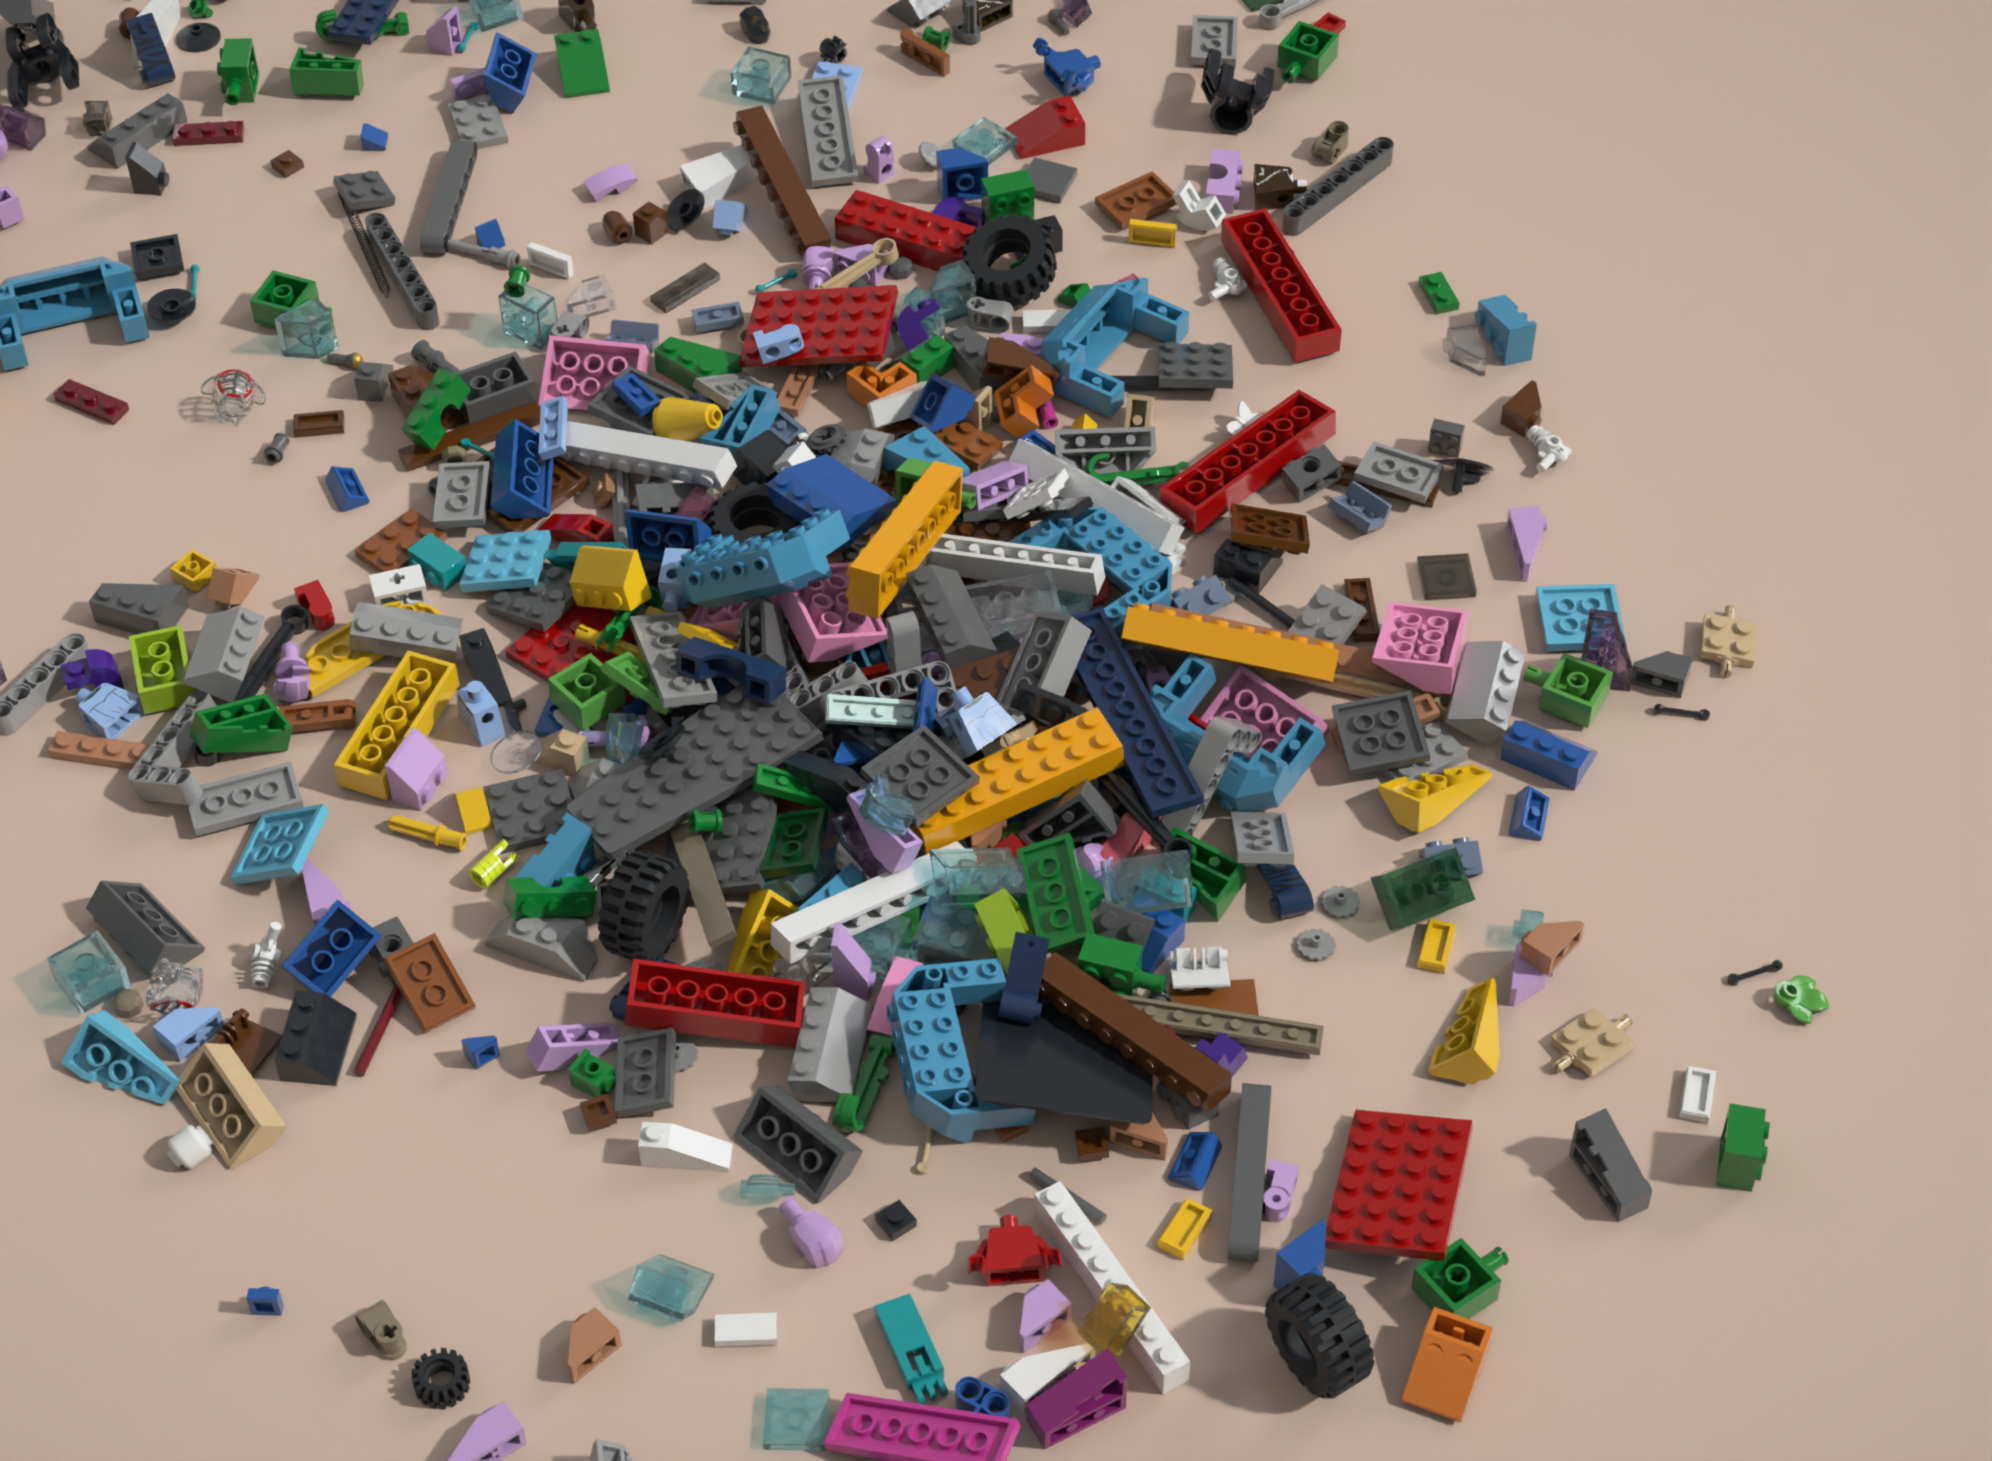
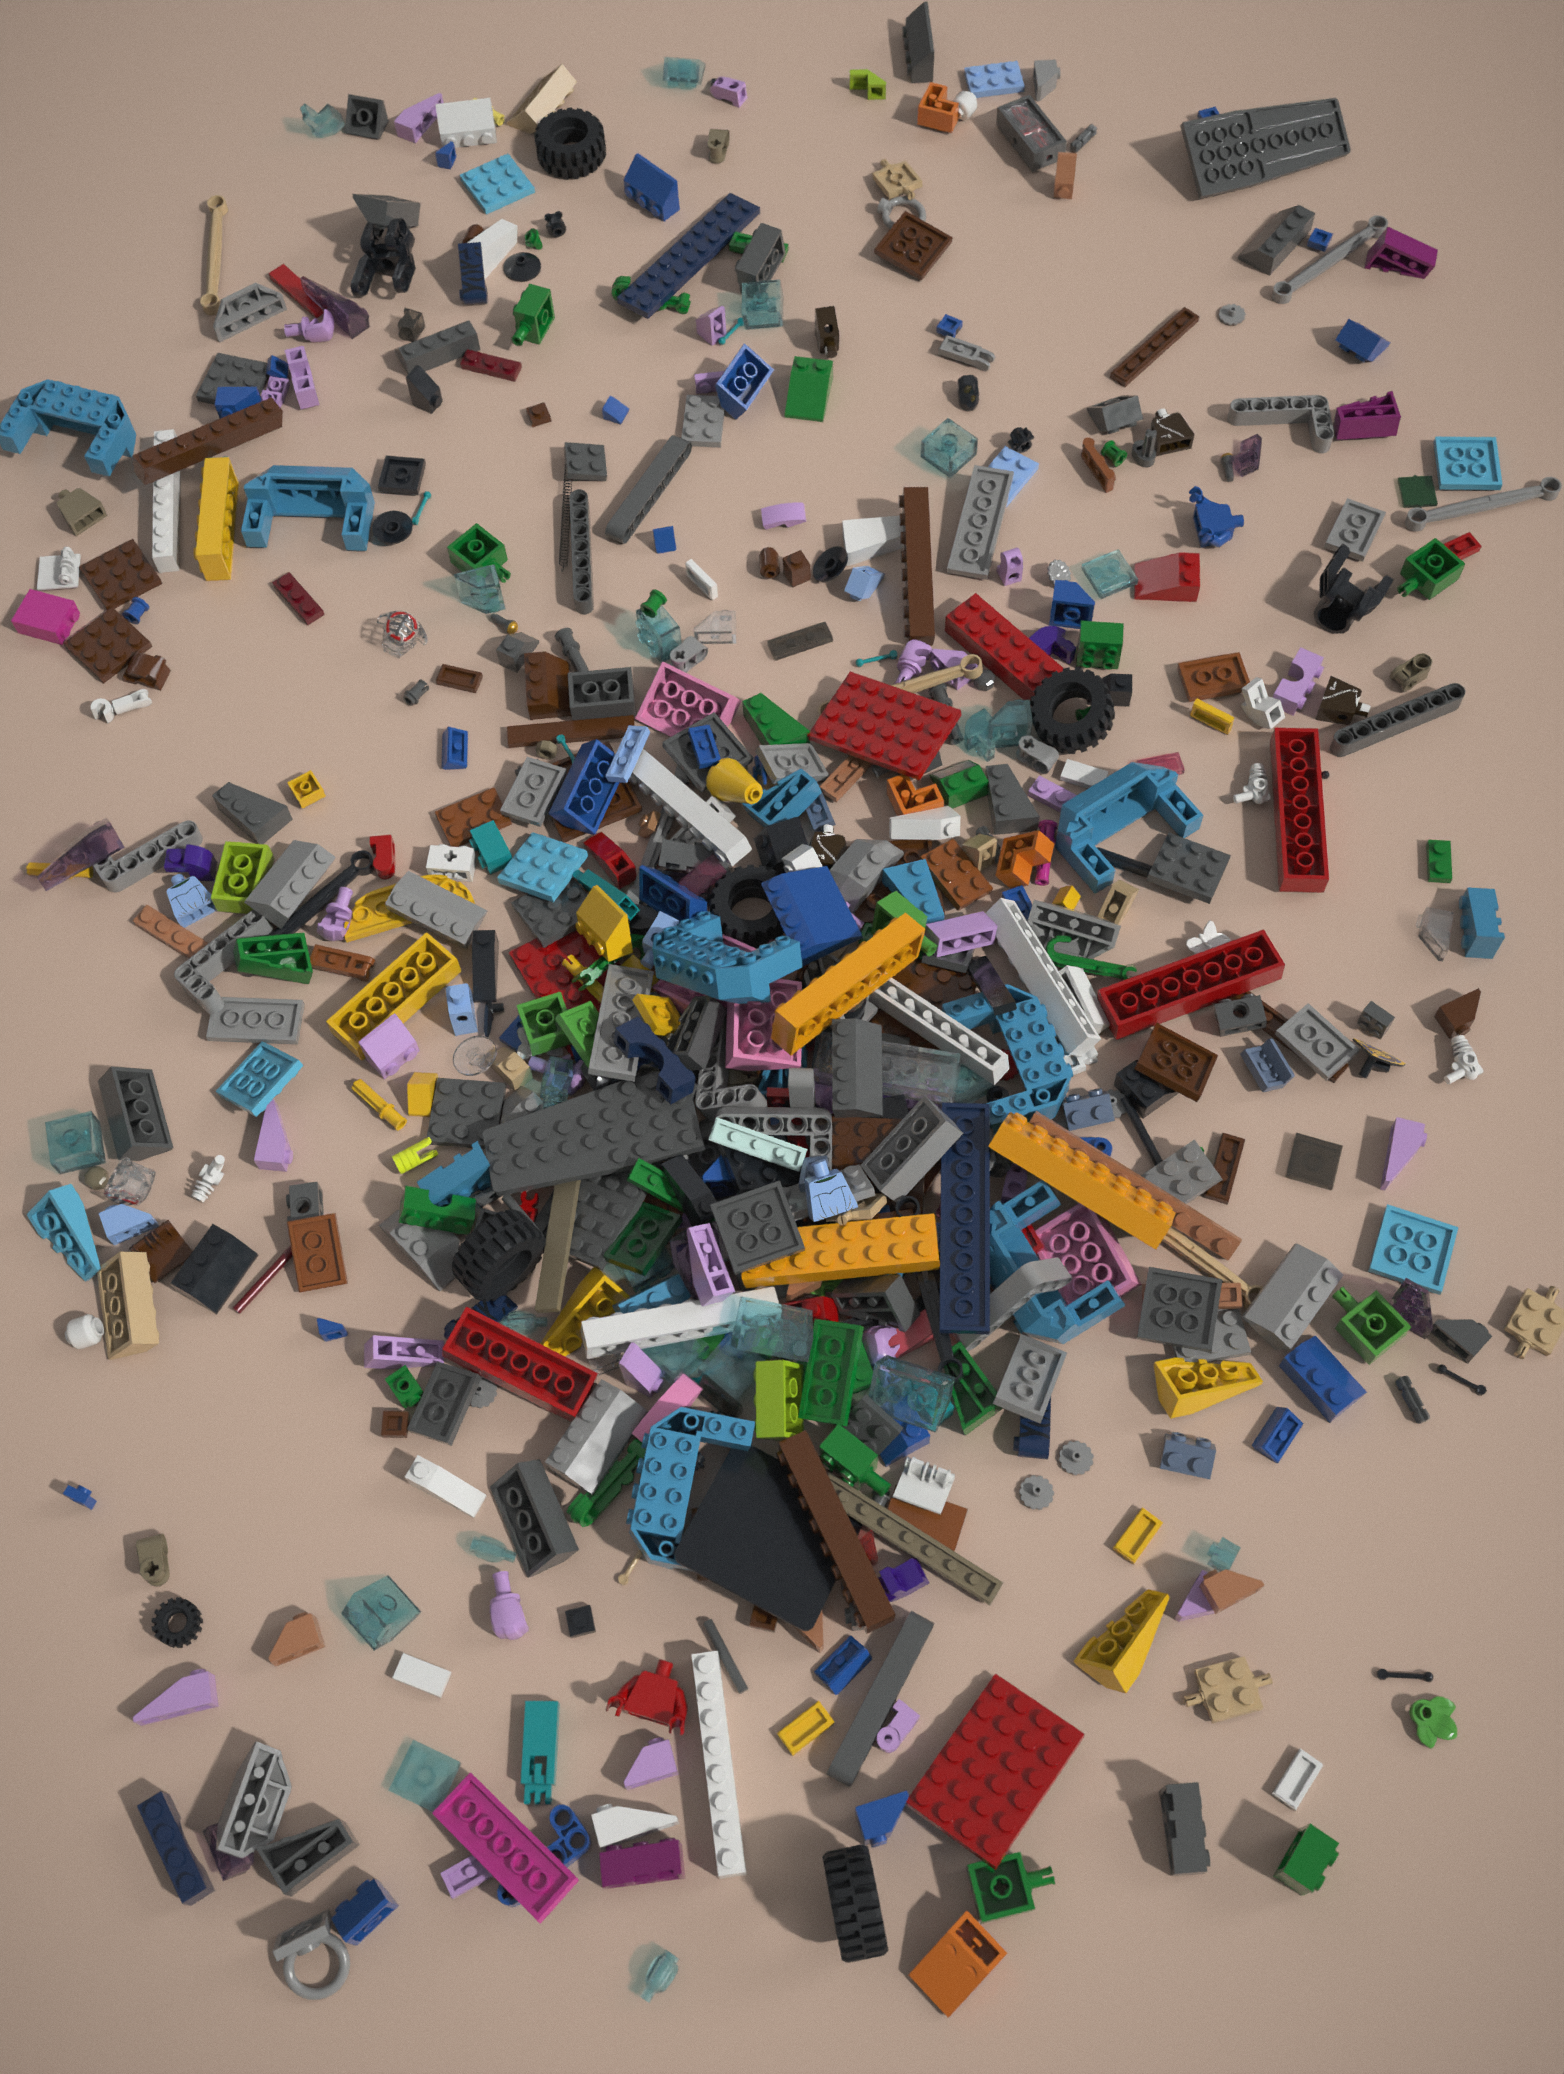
camera: 25 degrees right, 15 degrees up
(230, 586) = (327, 813): nougat slope -> none
(325, 75) = (599, 338): green wedge -> none
(331, 949) = (254, 1194): blue slope -> none
(424, 422) = (551, 692): green arch -> none
(493, 254) = (672, 566): light grey pin -> none
(635, 333) = (734, 679): sand blue bracket -> none
(662, 743) = (572, 1107): black dish -> none
(705, 821) = (580, 1192): green bush -> none
(717, 317) = (812, 680): sand blue plate -> none
(779, 342) = (839, 734): light blue leg -> none
(826, 438) = (840, 836): dark grey gear -> none
(886, 810) = (708, 1257): clear light blue brick -> none
(910, 321) = (964, 744): dark purple brick -> none
(925, 705) = (795, 1157): blue slope -> none
(941, 404) = (950, 841): blue slope -> none
(1008, 359) = (1027, 817): reddish brown slope -> none
(1024, 979) = (766, 1450): dark blue door -> none
(1036, 494) = (988, 962): white plate -> none
(1044, 704) = (895, 1193): black hinge -> none
(1051, 179) = (1148, 629): dark grey tile -> none
(1073, 294) = (1119, 757): green slope -> none
(1114, 1319) = (699, 1808): clear yellow brick -> none
(1422, 645) = (1254, 1233): bright pink slope -> none
(1422, 888) = (1146, 1482): clear green brick -> none
(1644, 742) = (1412, 1399): none -> dark grey axle

